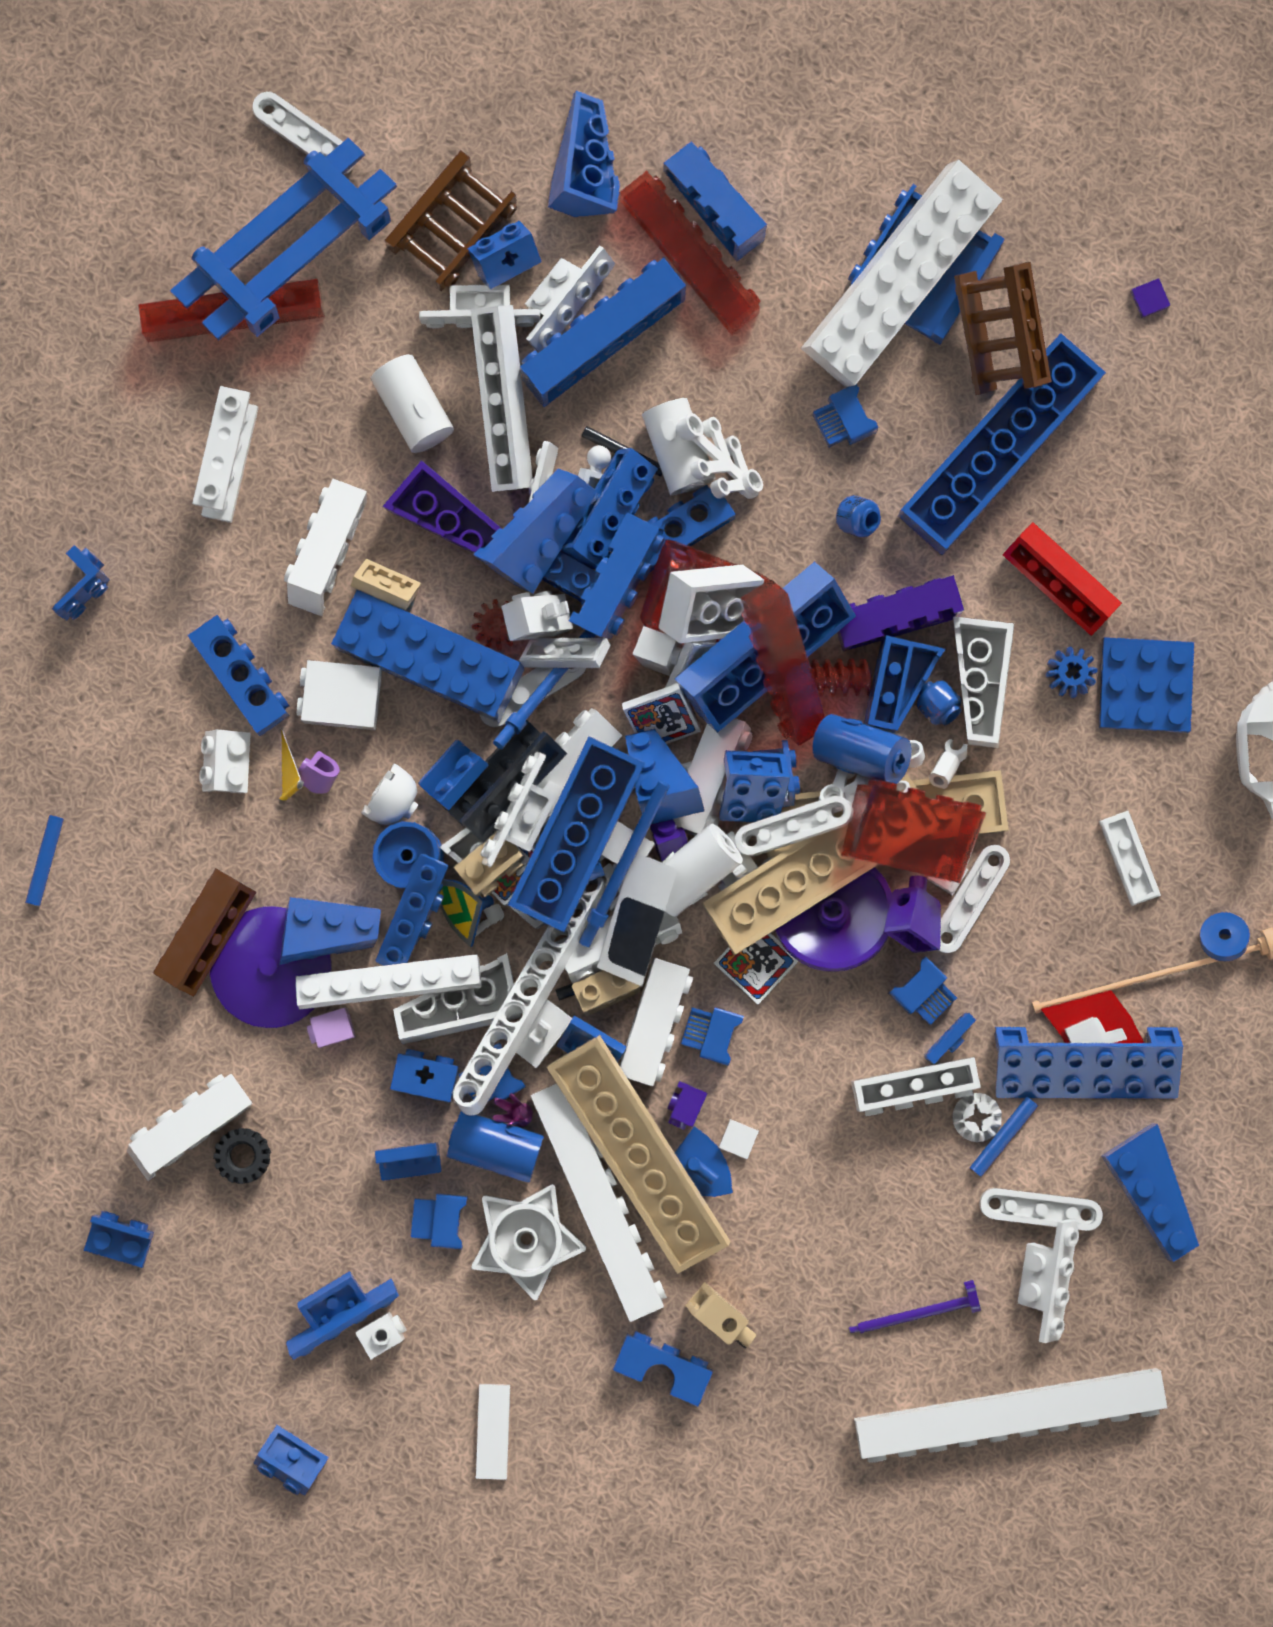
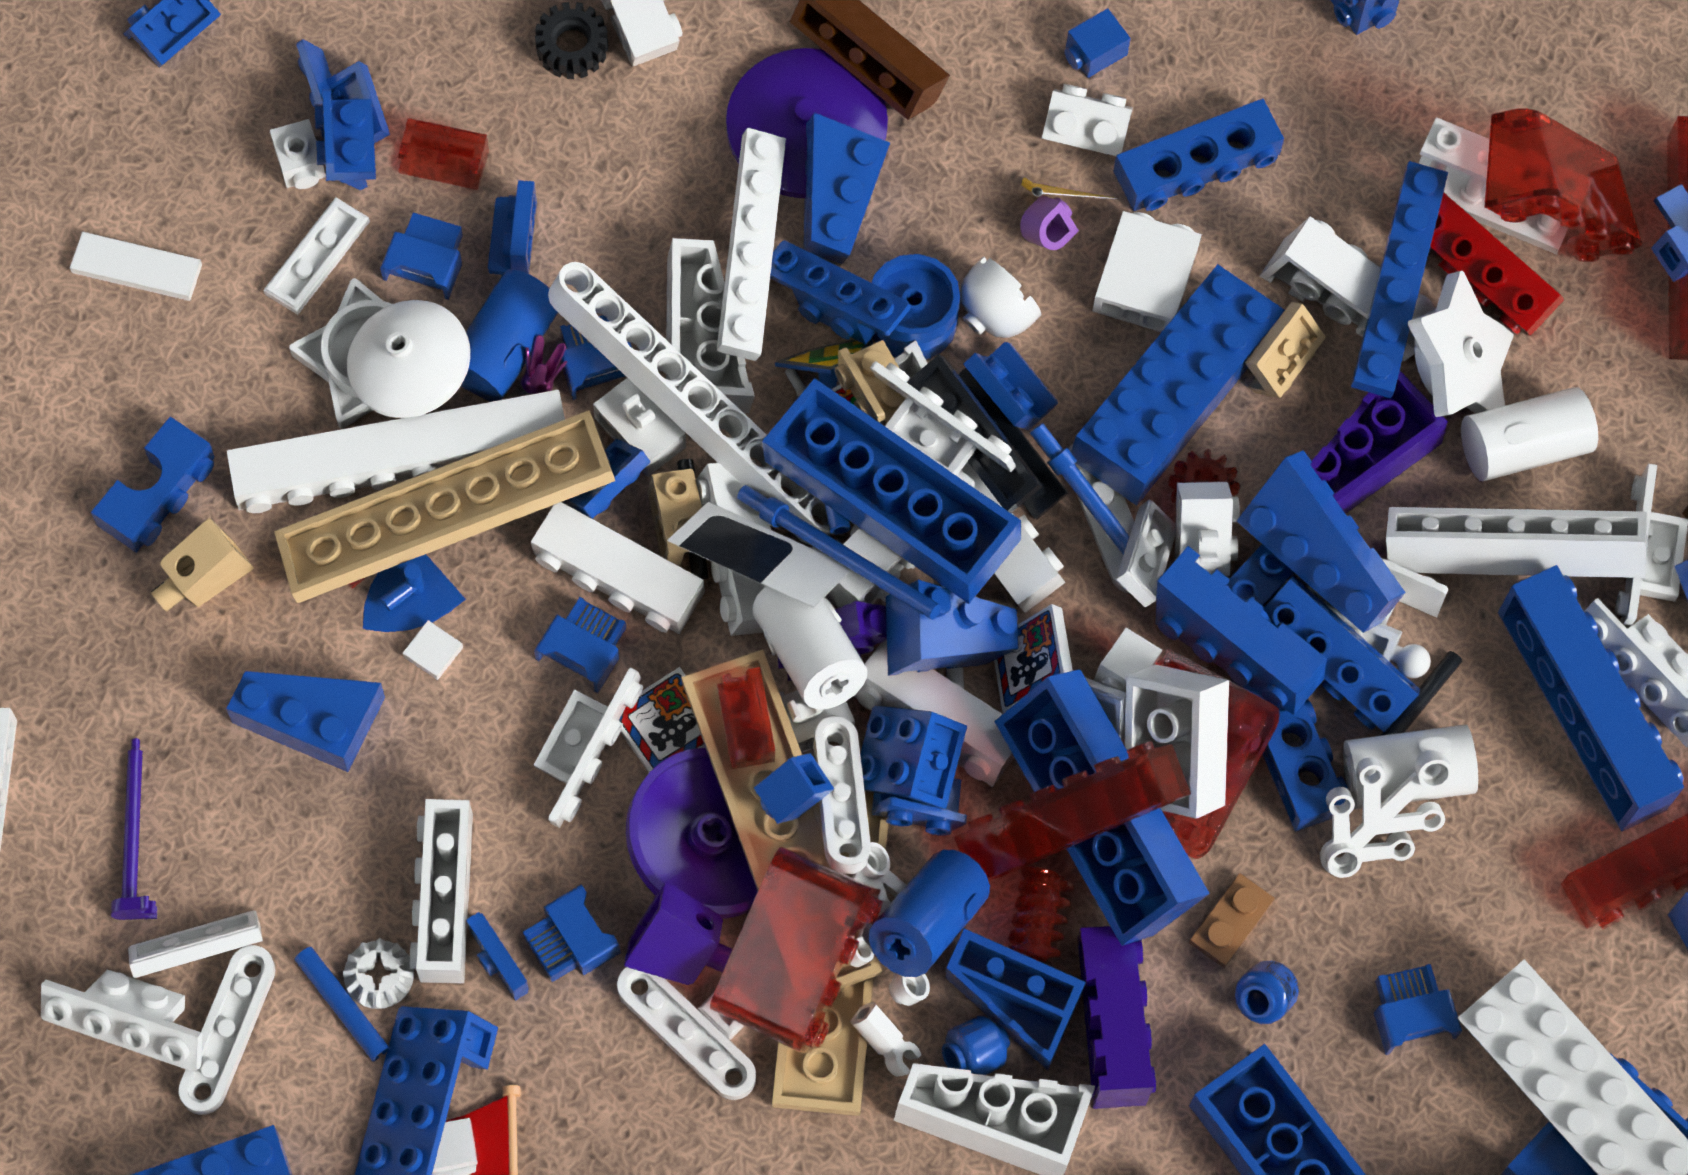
camera: 100 degrees right, 15 degrees down
(163, 767) = (1096, 43): none -> blue brick
(224, 408) = (1558, 173): none -> clear red windscreen
(283, 456) = (1492, 269): none -> red brick
(318, 511) = (1399, 279): none -> blue plate
(331, 1028) = (709, 175): lavender brick -> none
(357, 1228) = (443, 153): none -> clear red hinge
(363, 460) = (1460, 351): none -> white plate
(367, 1298) = (348, 138): none -> blue bracket
(438, 1088) = (629, 252): blue brick -> none
(455, 1301) = (316, 255): none -> white tile
(540, 1188) = (419, 374): none -> white dish
(685, 1105) = (496, 588): dark purple brick -> none
(759, 901) = (746, 719): none -> clear red hinge
(785, 1019) = (579, 739): none -> white bracket
(804, 857) = (793, 788): none -> blue brick
(808, 548) = (1231, 920): none -> medium nougat plate
(810, 1212) = (308, 713): none -> blue wedge
(988, 1247) = (194, 944): none -> white tile

